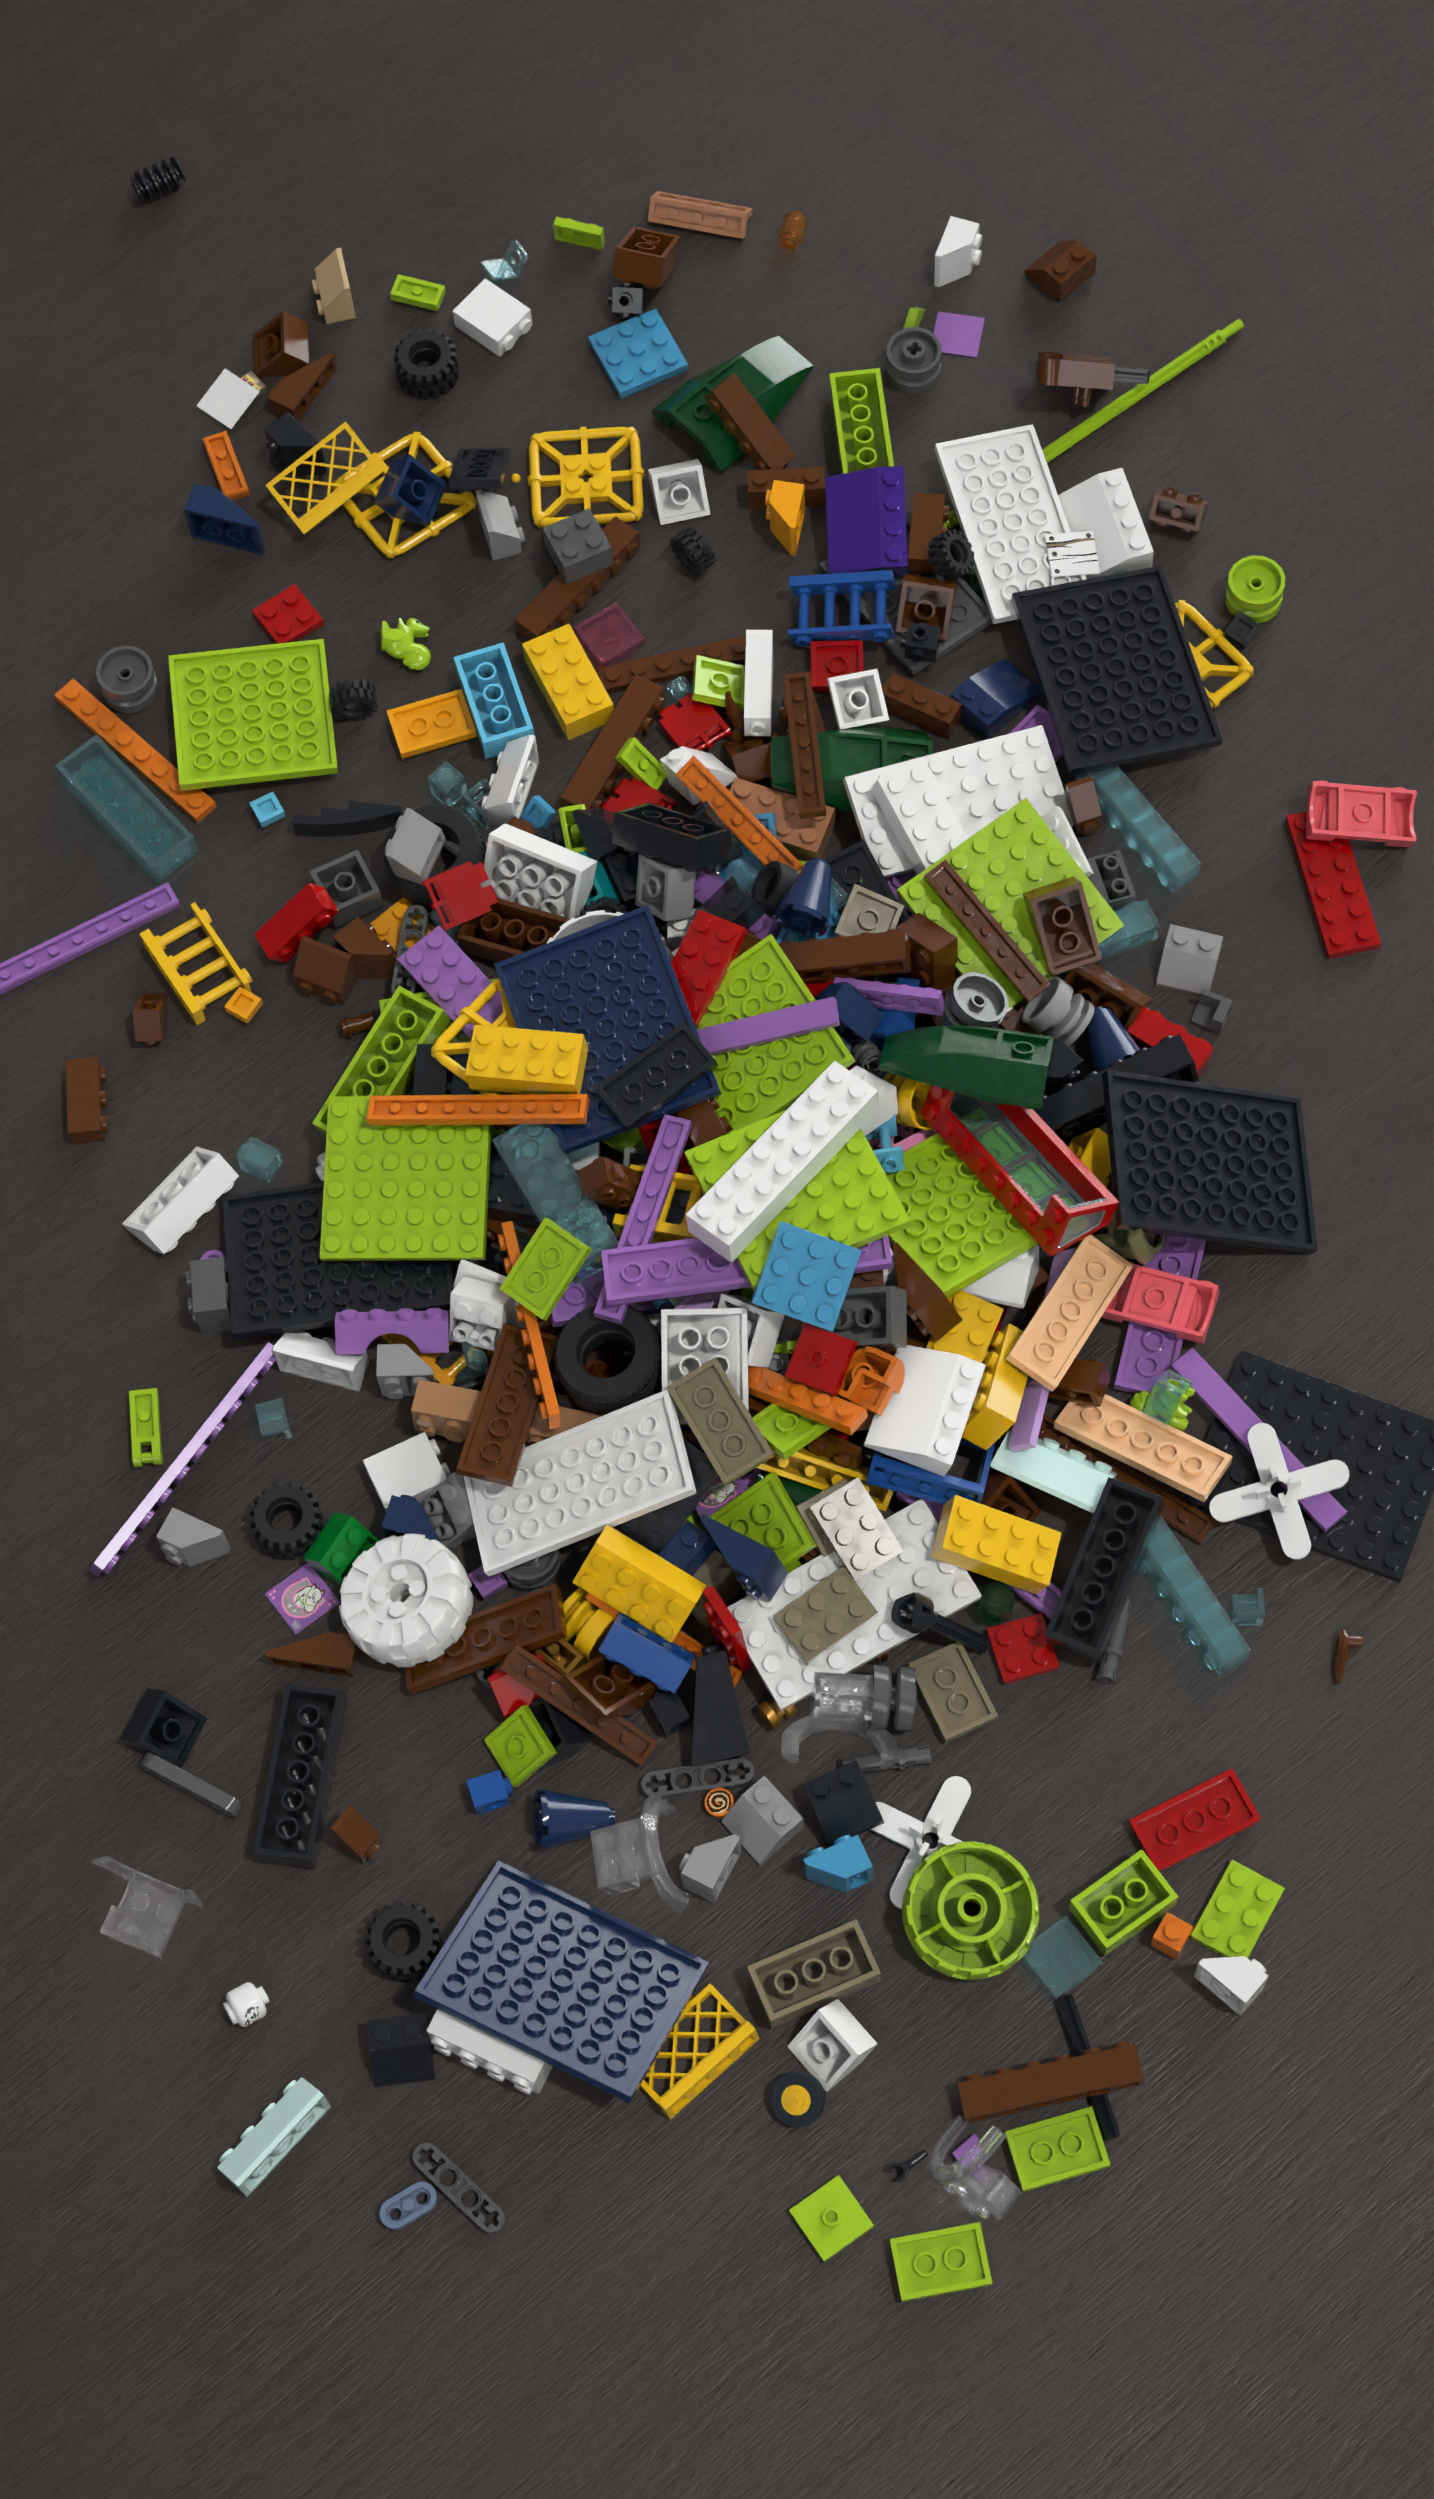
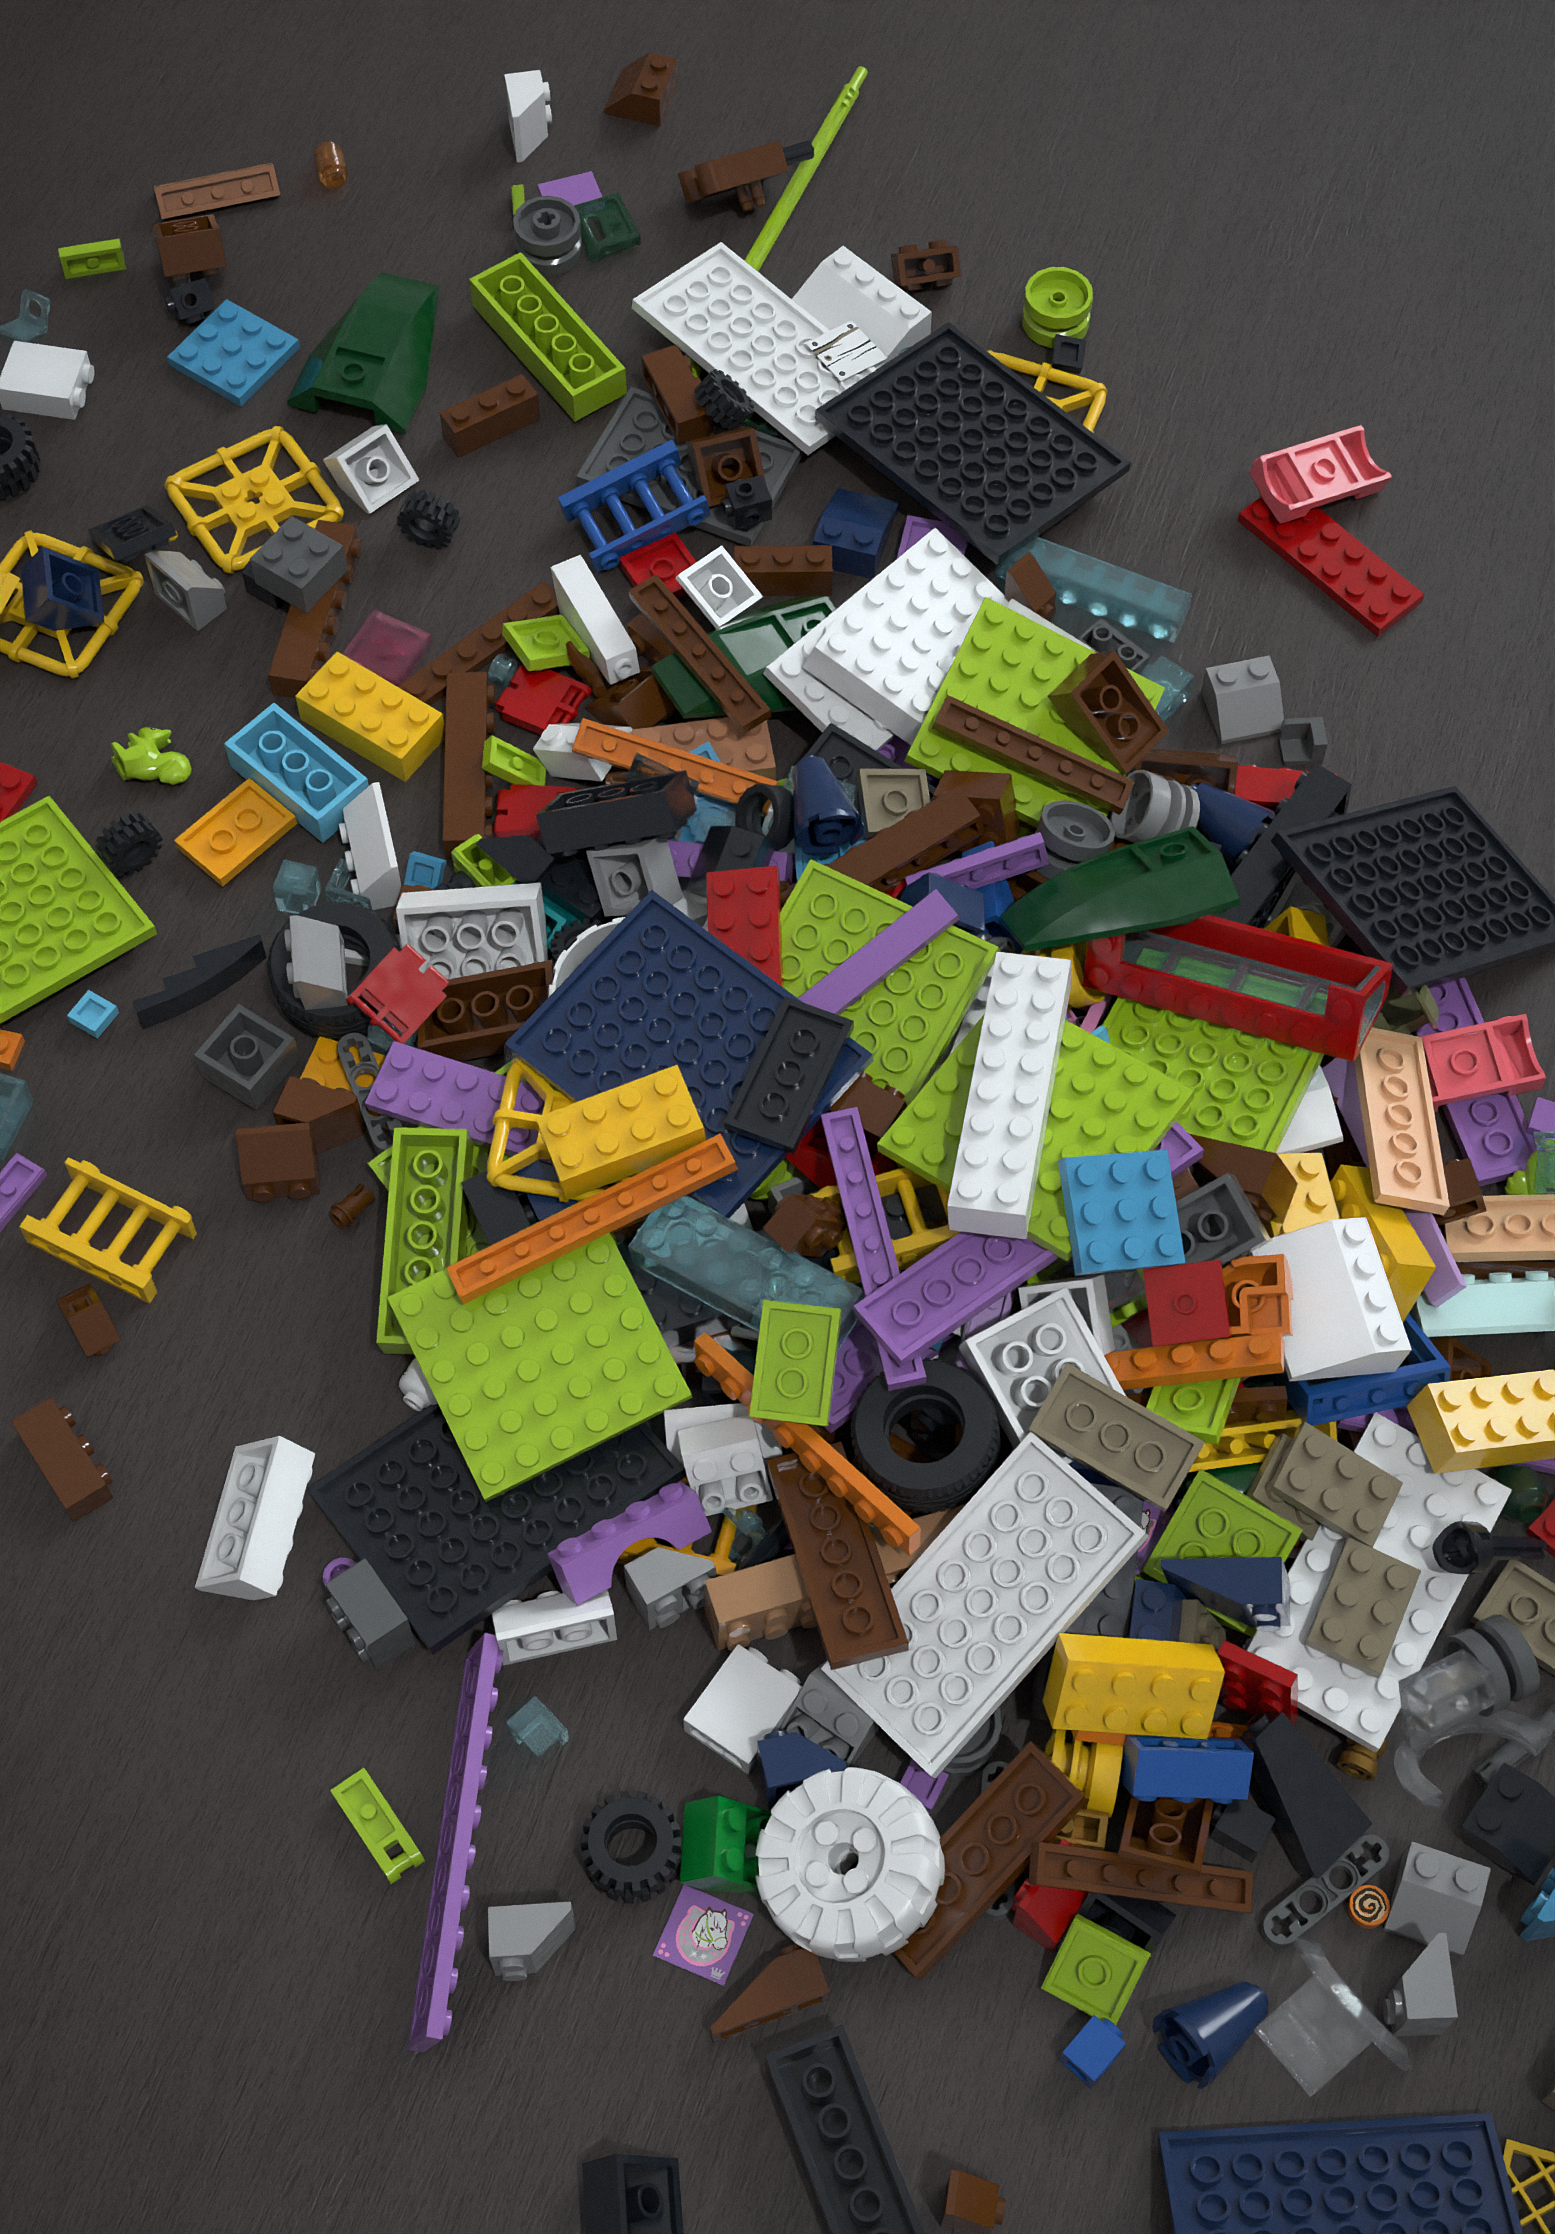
camera: 35 degrees left, 5 degrees down
(243, 1005) = (197, 1250): light orange plate -> none
(259, 1159) = (326, 1421): clear light blue brick -> none
(300, 917) = (212, 1122): red brick -> none
(749, 424) = (413, 362): reddish brown brick -> none
(786, 513) = (510, 438): light orange slope -> none
(867, 521) = (609, 403): dark purple slope -> none
(971, 370) = (614, 223): none -> clear green plate

